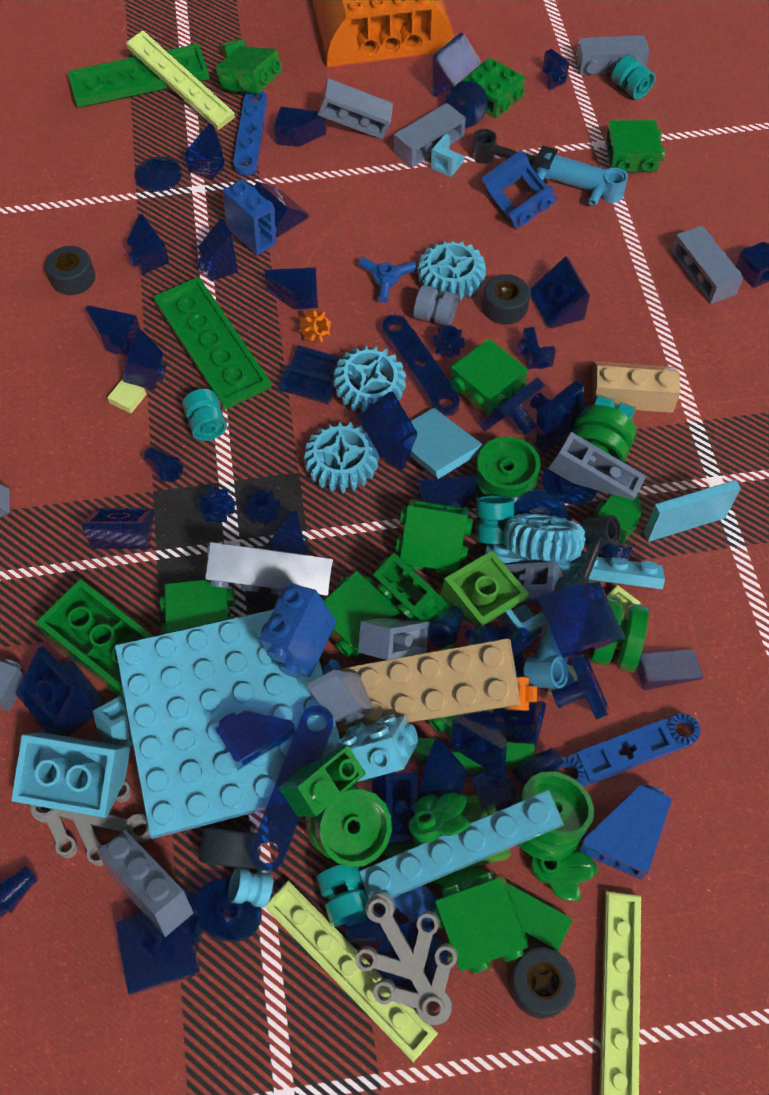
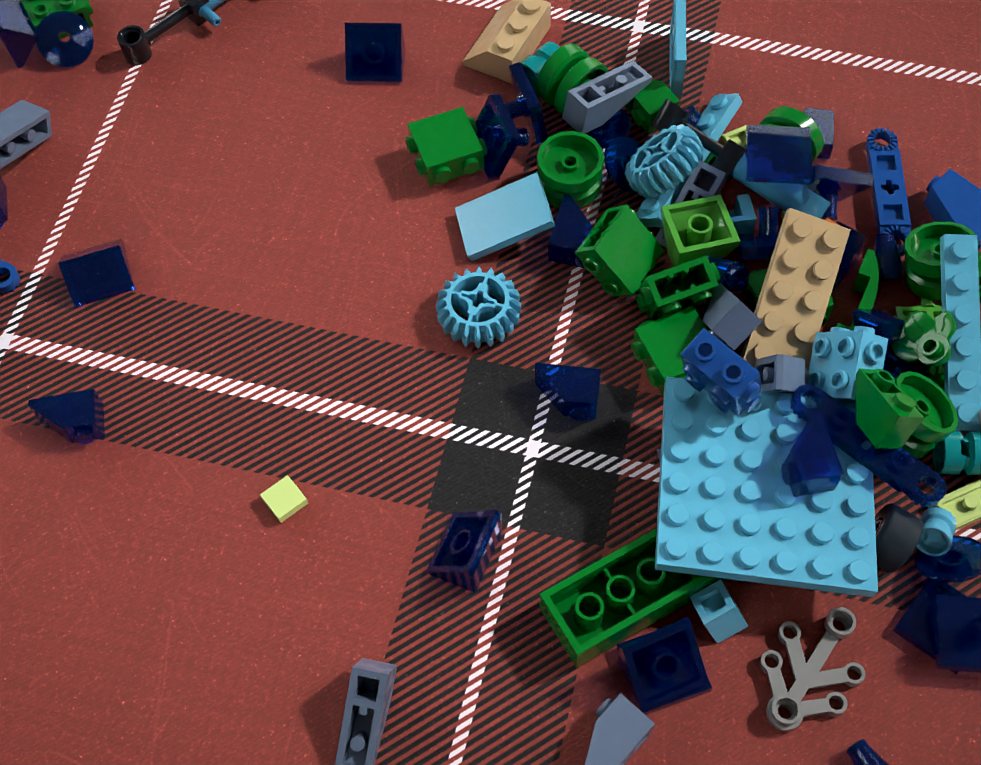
camera: 65 degrees left, 0 degrees up
(69, 773) = (767, 667): medium azure slope -> none
(70, 270) = (59, 511): black wheel -> none
(113, 328) = (182, 485): clear blue slope -> none
(144, 362) = (251, 462): clear blue slope -> none
(145, 882) = (913, 620): sand blue brick -> none
(163, 464) = (403, 483): clear blue cone -> none
(195, 605) = (619, 495): green brick -> none
(204, 415) = (361, 419): teal wheel -> none
(212, 343) = (254, 387): green plate -> none
(217, 253) = (137, 337): clear blue slope -> none
(217, 505) = (484, 431): clear blue gear -> none
(250, 216) = (108, 286): blue brick -> none
(262, 506) = (507, 399): clear blue gear -> none
(265, 568) = (605, 404): brick -> none
(294, 286) = (227, 280): clear blue slope -> none
(310, 375) = (354, 303): clear blue slope -> none
(314, 326) = (295, 277): orange gear -> none
(361, 368) = (395, 259): medium azure gear -> none
(386, 275) = (259, 192): blue piece -> none
(389, 430) = (478, 242): clear blue slope -> none
(418, 139) = (83, 87): sand blue brick -> none
(428, 378) = (376, 201): clear blue piece -> none
(435, 306) = (331, 159): sand blue wheel -> none
(445, 160) = (128, 86): medium azure panel -> none
(448, 341) = (380, 166): clear blue gear -> none
(452, 268) = (288, 131): medium azure gear -> none
(481, 739) = (862, 280): clear blue slope -> none
(494, 514) = (617, 189): teal wheel -> none
(494, 790) = (899, 295): clear blue bracket -> none
(506, 299) = (353, 99): black wheel -> none
(508, 173) = (195, 21): blue panel -> none
(534, 356) = (429, 101): clear blue bracket -> none

